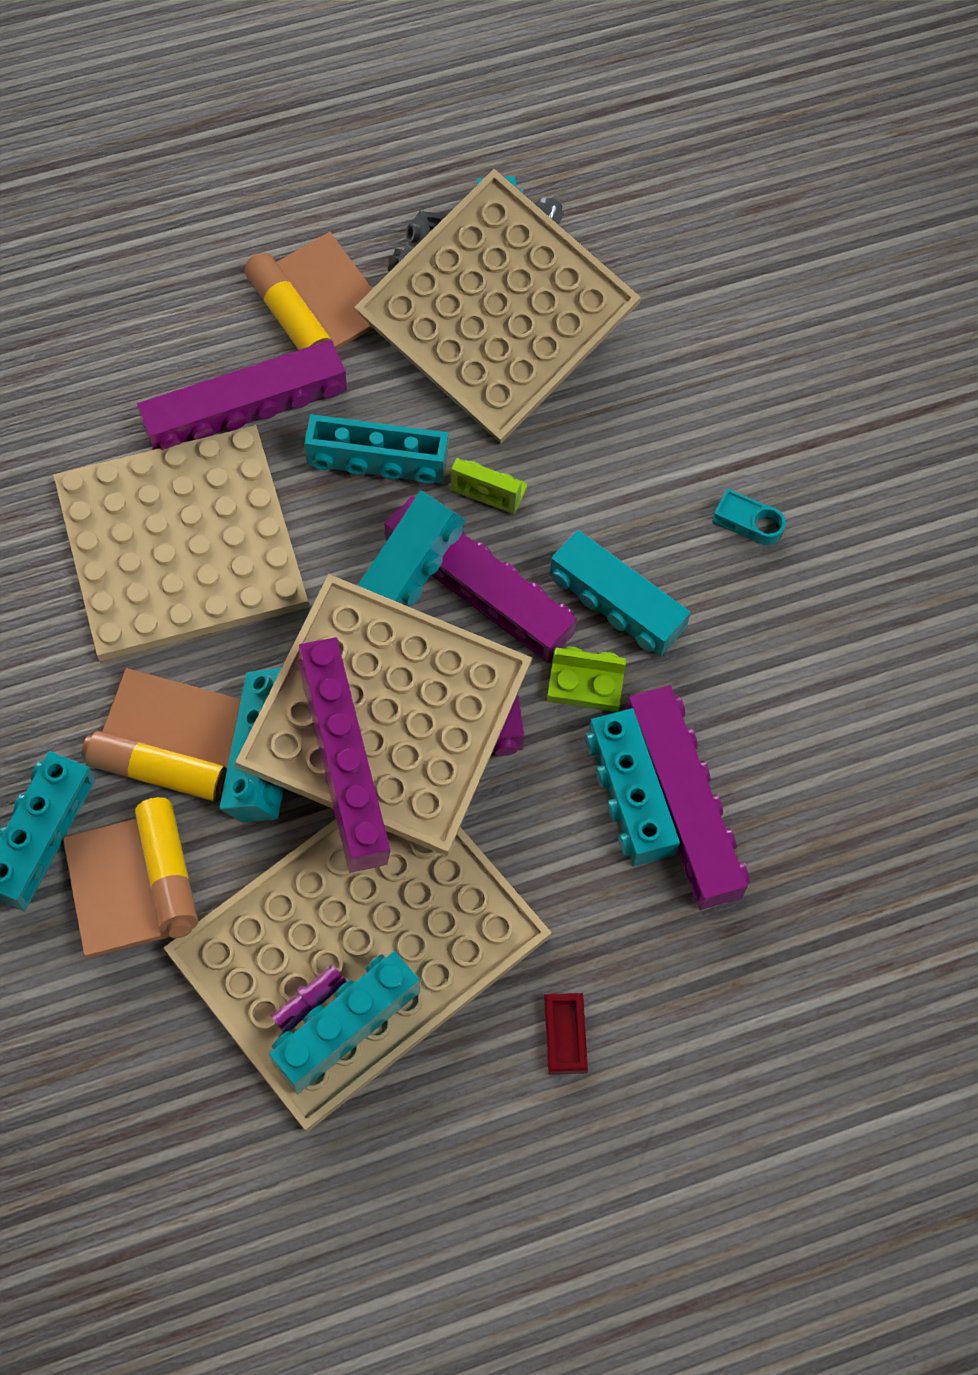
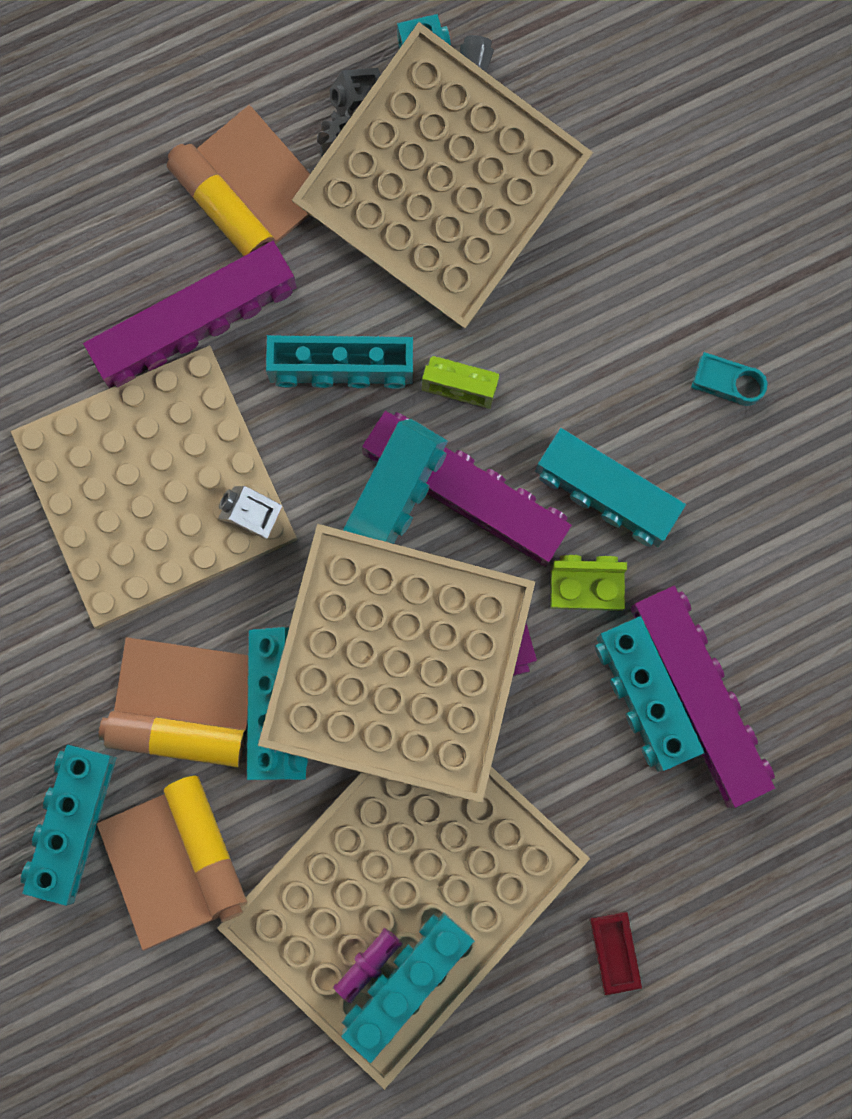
camera: 10 degrees left, 15 degrees up
(267, 564) = (249, 510): none -> bracket
(343, 755) = (365, 725): magenta brick -> none

